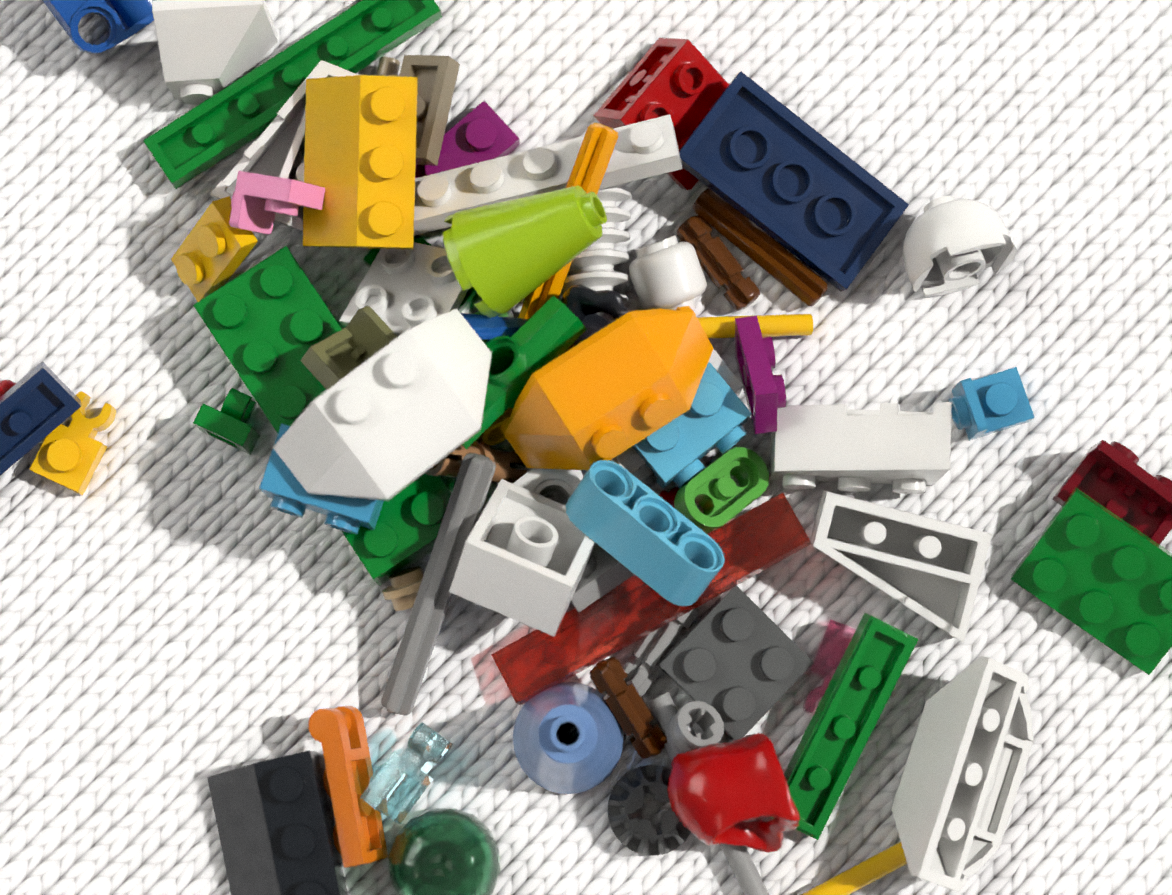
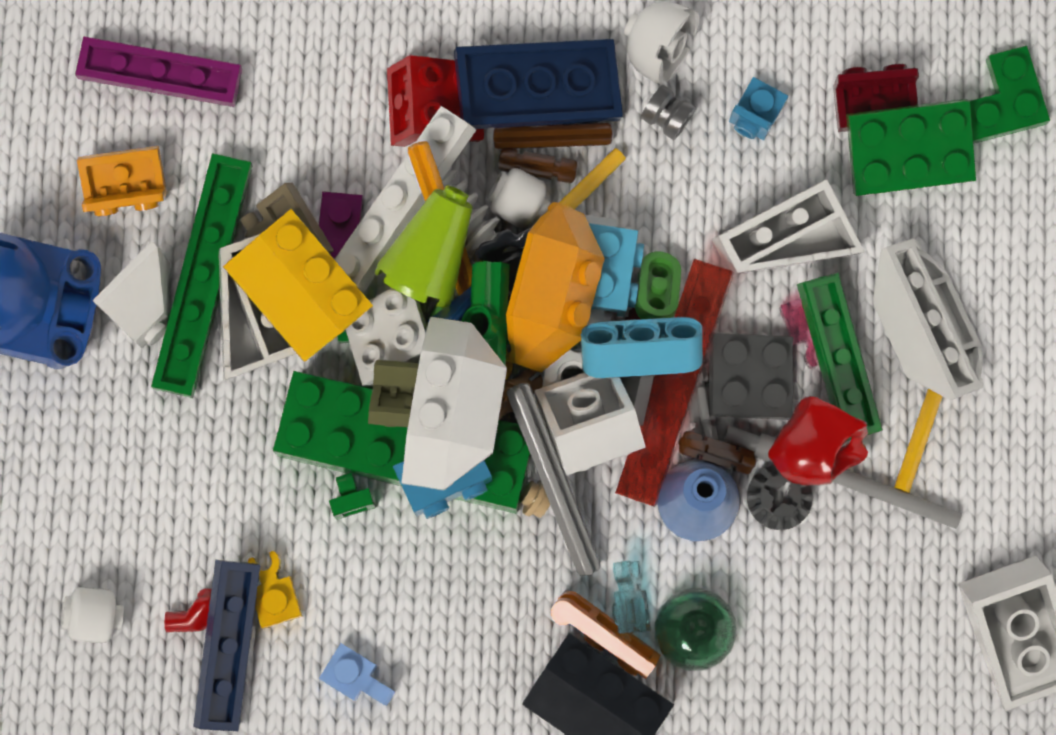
camera: 40 degrees left, 0 degrees up
(72, 595) = (352, 674): none -> light blue plate
(212, 250) = (252, 410): yellow plate -> none
(261, 196) = (259, 353): bright pink bracket -> none
(693, 713) = (759, 420): light grey bush -> none
(755, 363) = (614, 204): magenta plate -> none
(861, 447) = (711, 196): white wedge -> none
(896, 325) = (668, 112): none -> flat silver wheel

